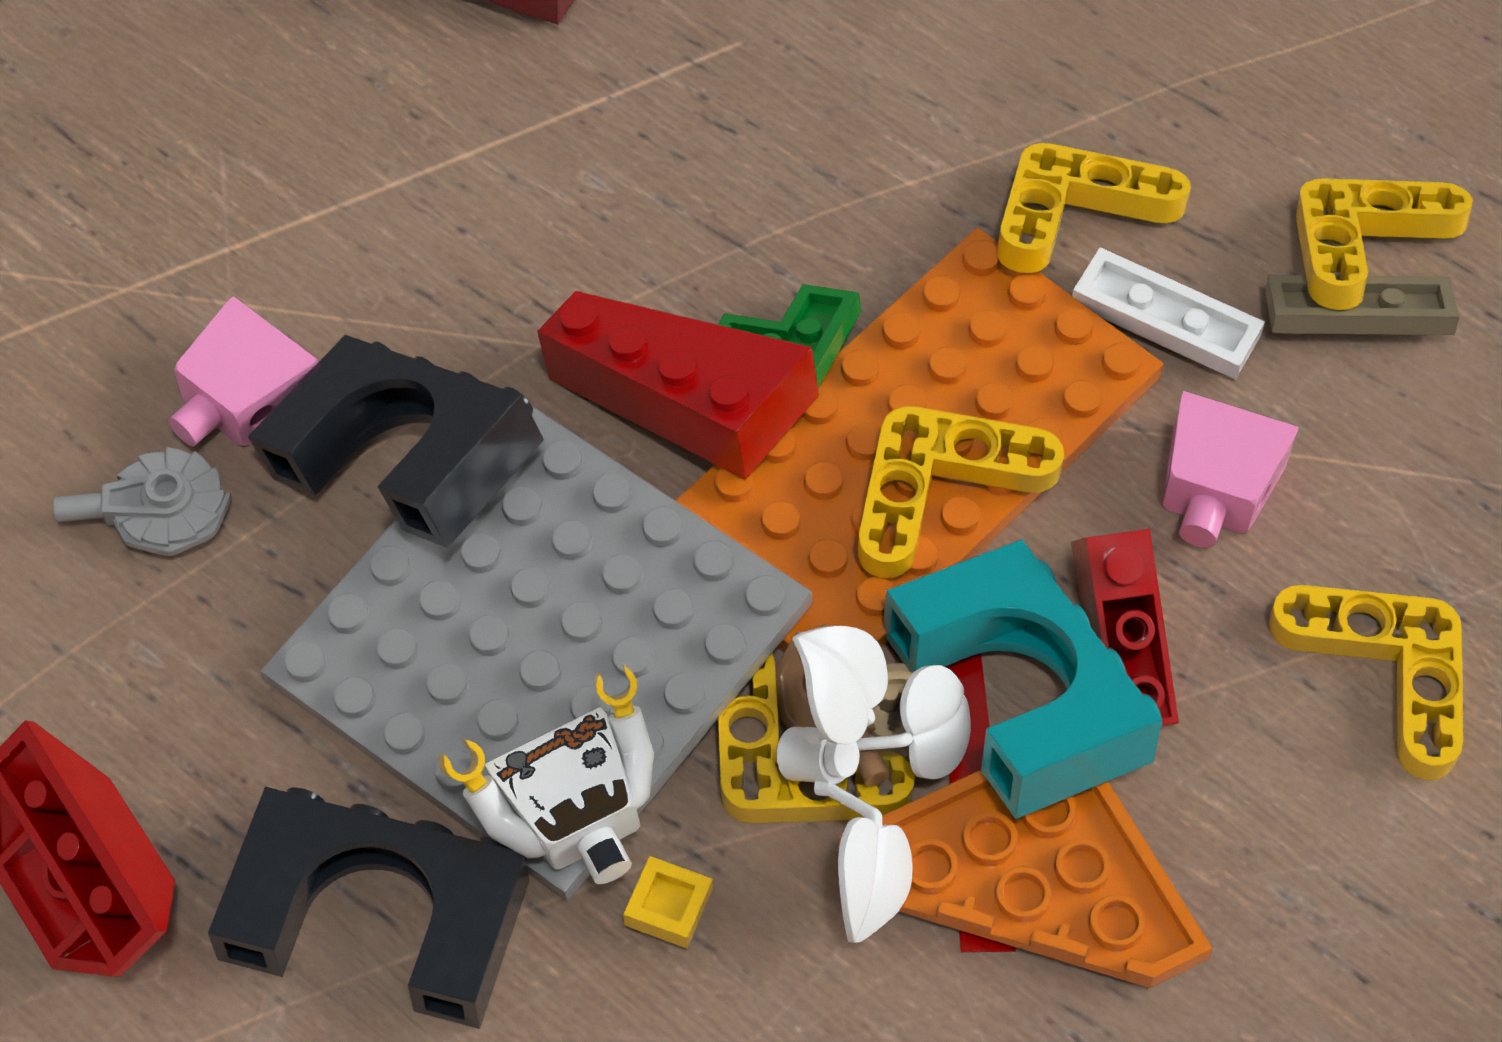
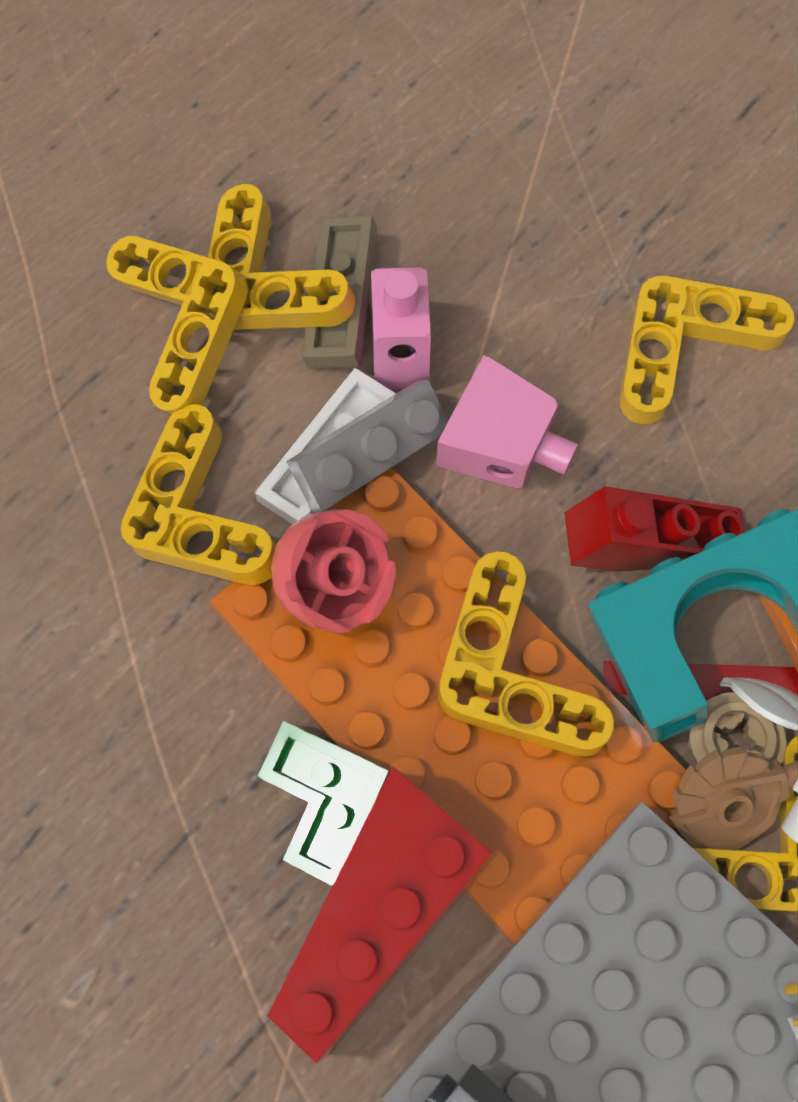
camera: 85 degrees left, 10 degrees up
(1007, 290) = (333, 570): none -> coral cylinder
(1170, 335) = (368, 445): none -> light grey plate
(1312, 179) = (194, 297): none -> yellow beam
(1319, 354) = (400, 318): none -> bright pink torso

